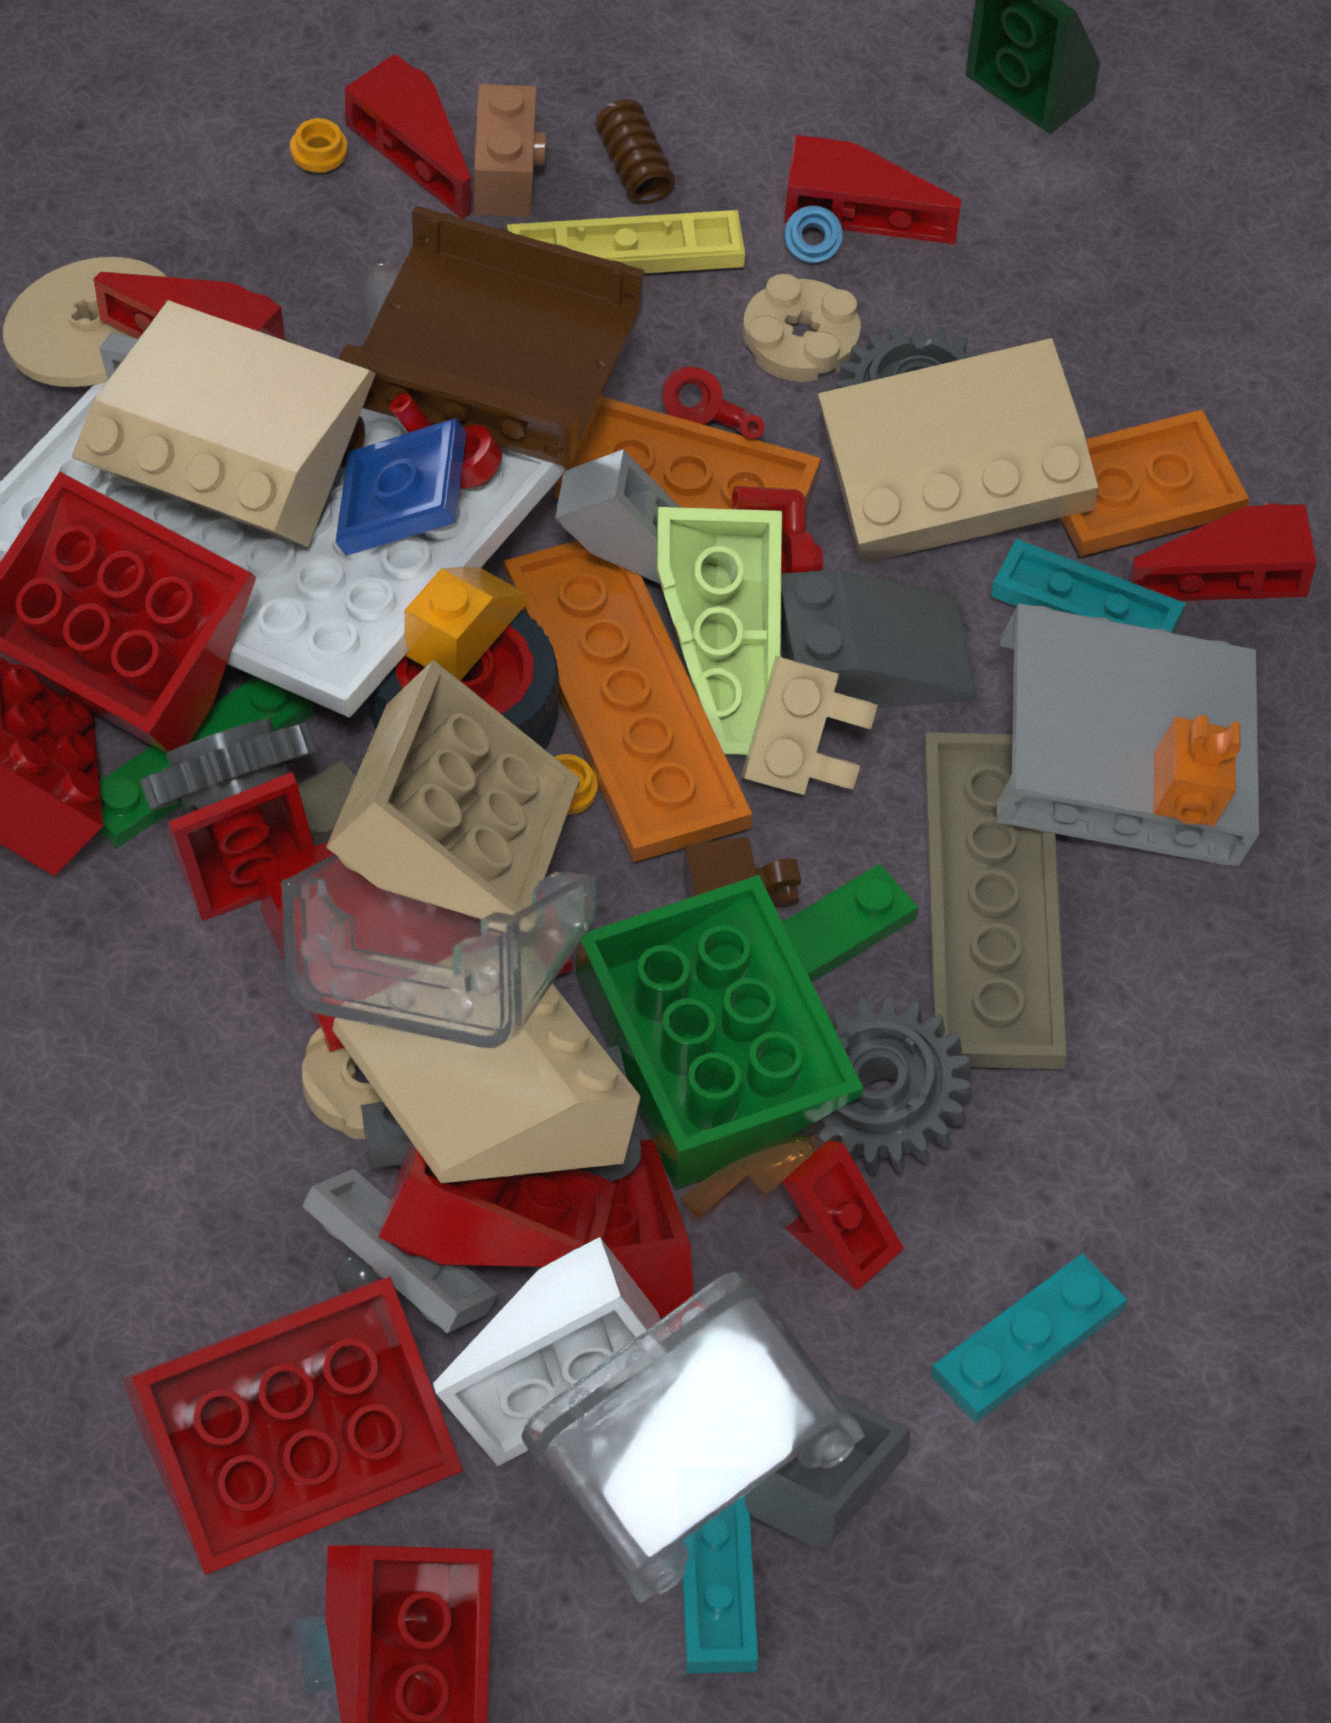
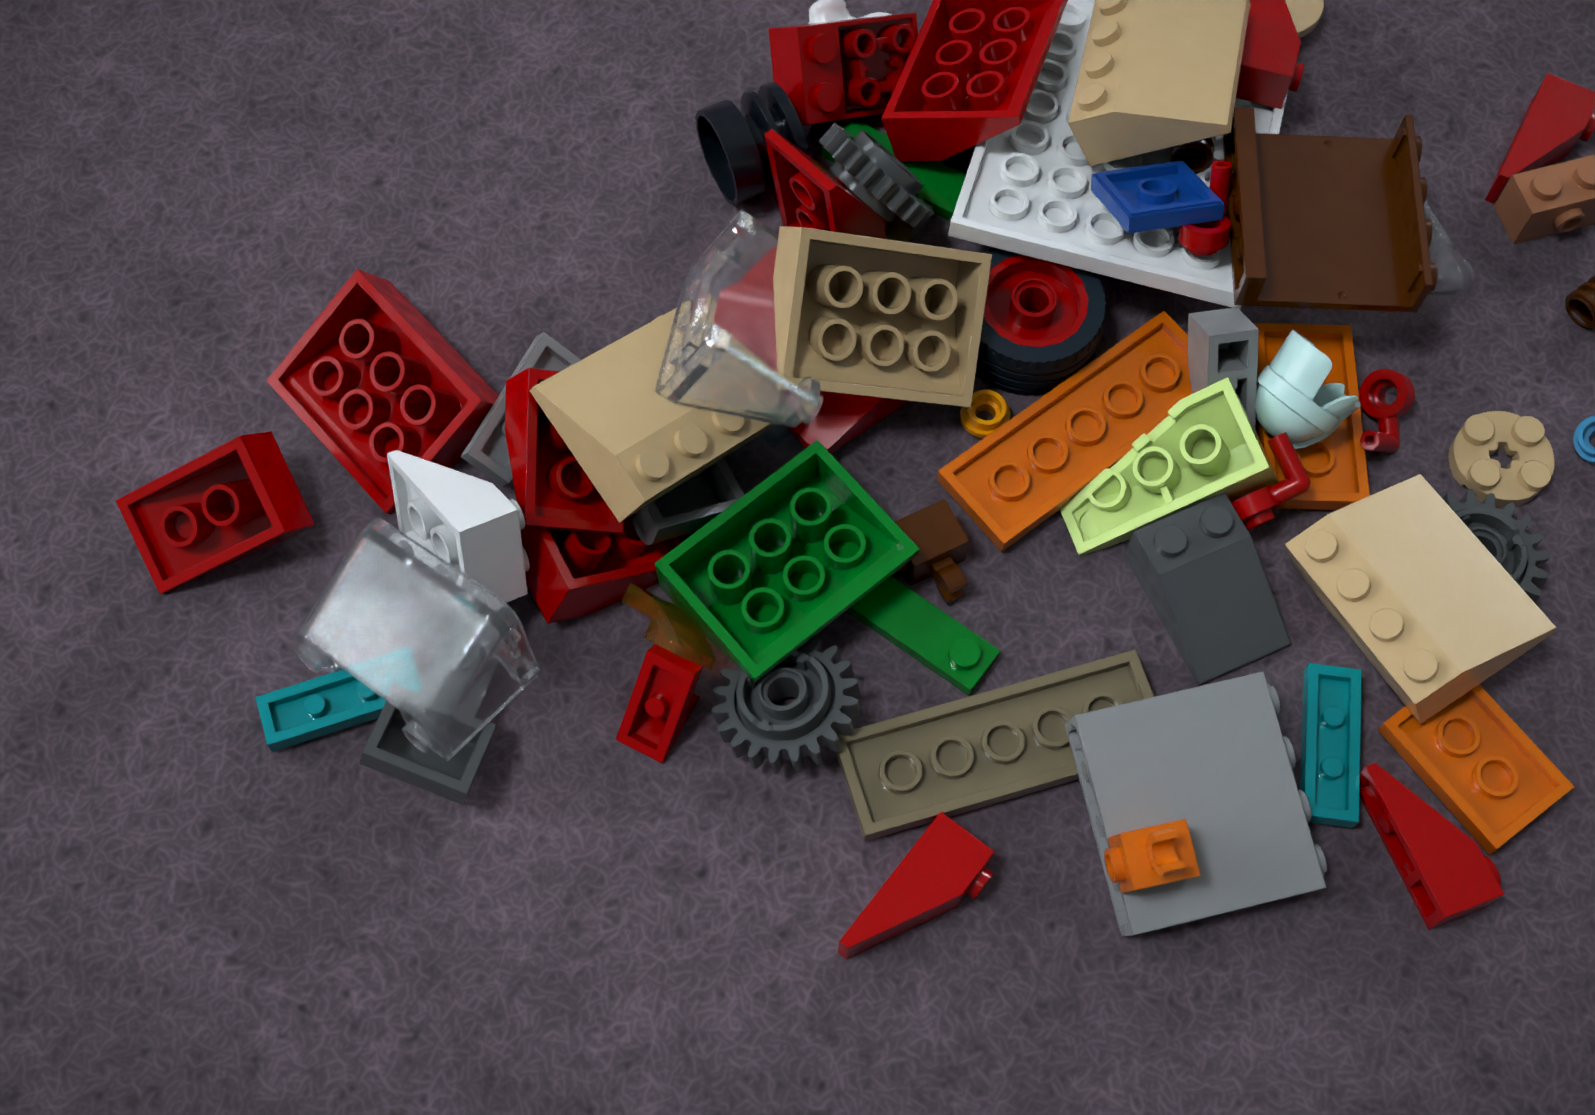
camera: 75 degrees right, 10 degrees up
(101, 895) = (736, 141): none -> black wheel
(318, 145) = (1500, 75): light orange plate -> none
(459, 617) = (1065, 275): light orange slope -> none
(650, 241) = (1519, 315): light yellow plate -> none
(689, 452) = (1293, 398): none -> light aqua helmet
(792, 724) = (1091, 545): tan plate -> none
(1028, 1338) = (608, 876): teal plate -> none
(1133, 1011) = (926, 884): none -> red slope

